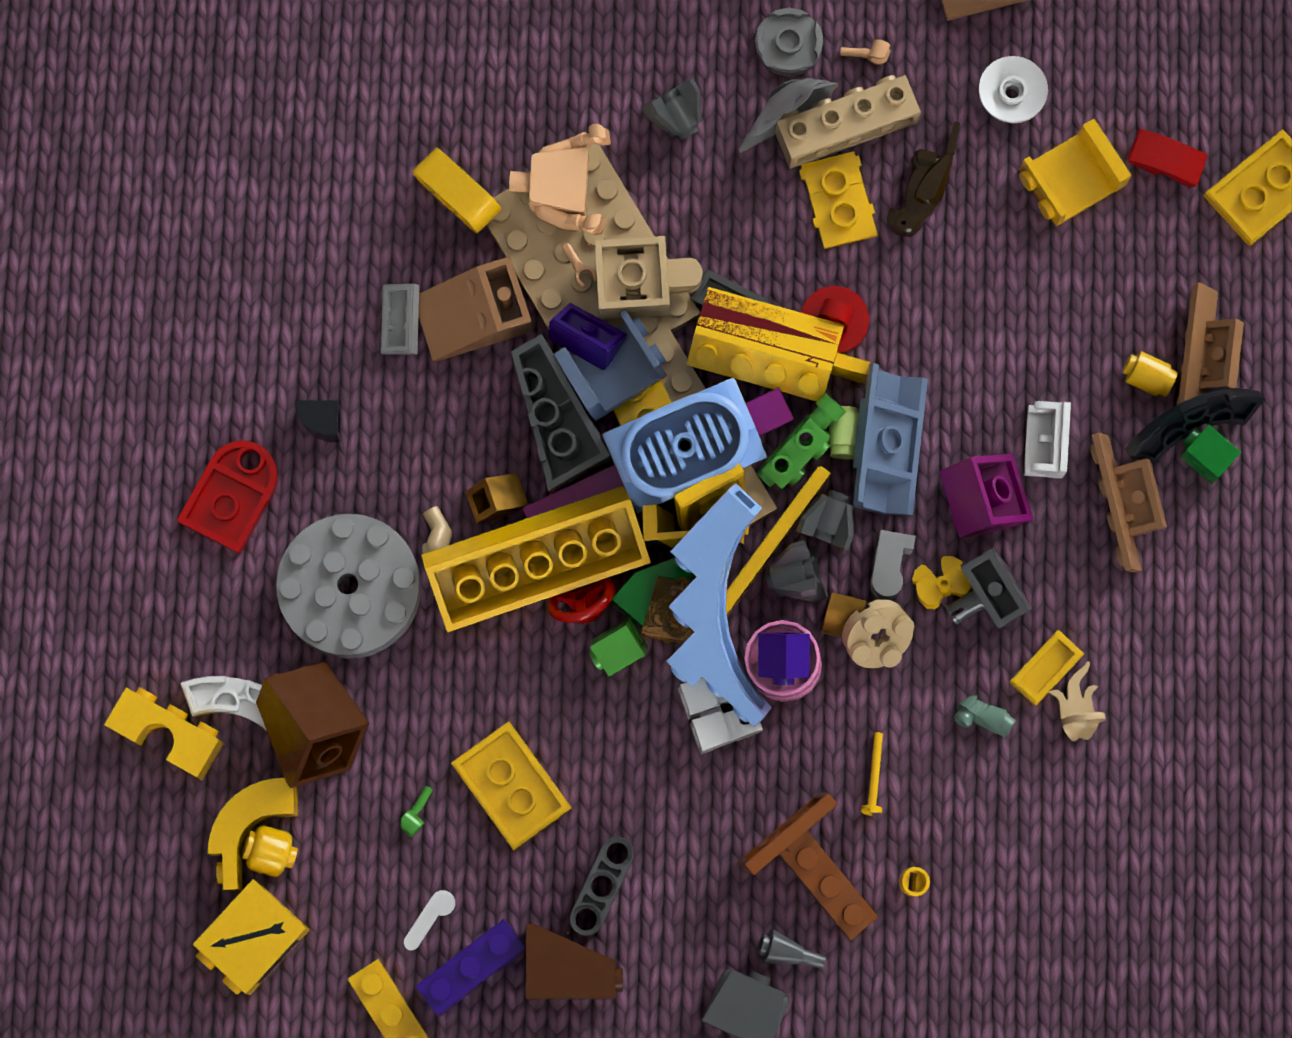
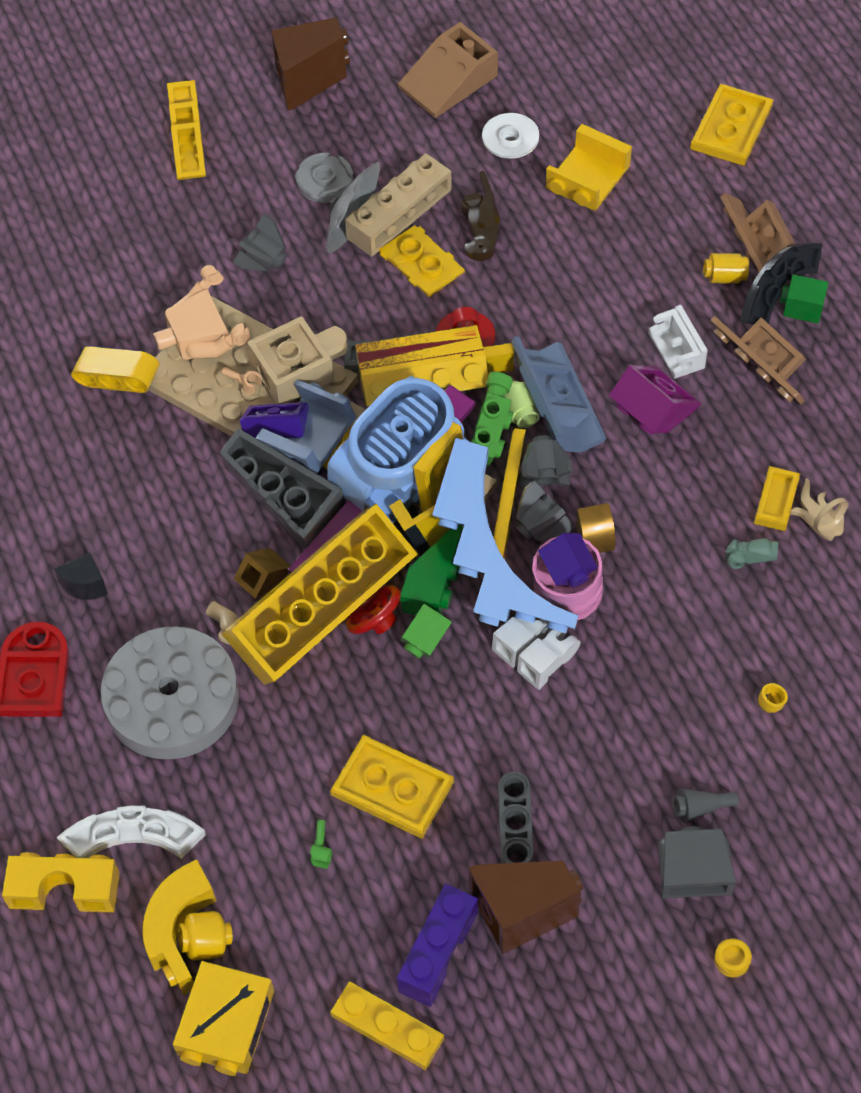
camera: 25 degrees left, 20 degrees down
(311, 723) = (192, 807): reddish brown slope -> none
(400, 319) = (114, 480): light grey plate -> none
(440, 904) = (380, 912): white sticker -> none
(474, 310) = (173, 444): medium nougat slope -> none
(659, 618) = (453, 590): clear orange piece -> none
(813, 866) = (686, 725): dark orange piece -> none
(871, 807) = (702, 660): yellow piece -> none
(877, 55) = (396, 157): light nougat hand -> none
(886, 574) = (605, 473): light grey leg -> none
(886, 649) = (646, 523): tan plate -> none
(932, 589) = (664, 469): yellow piece -> none
(992, 590) = (702, 456): dark grey brick -> none
(1168, 157) = (650, 130): red slope -> none

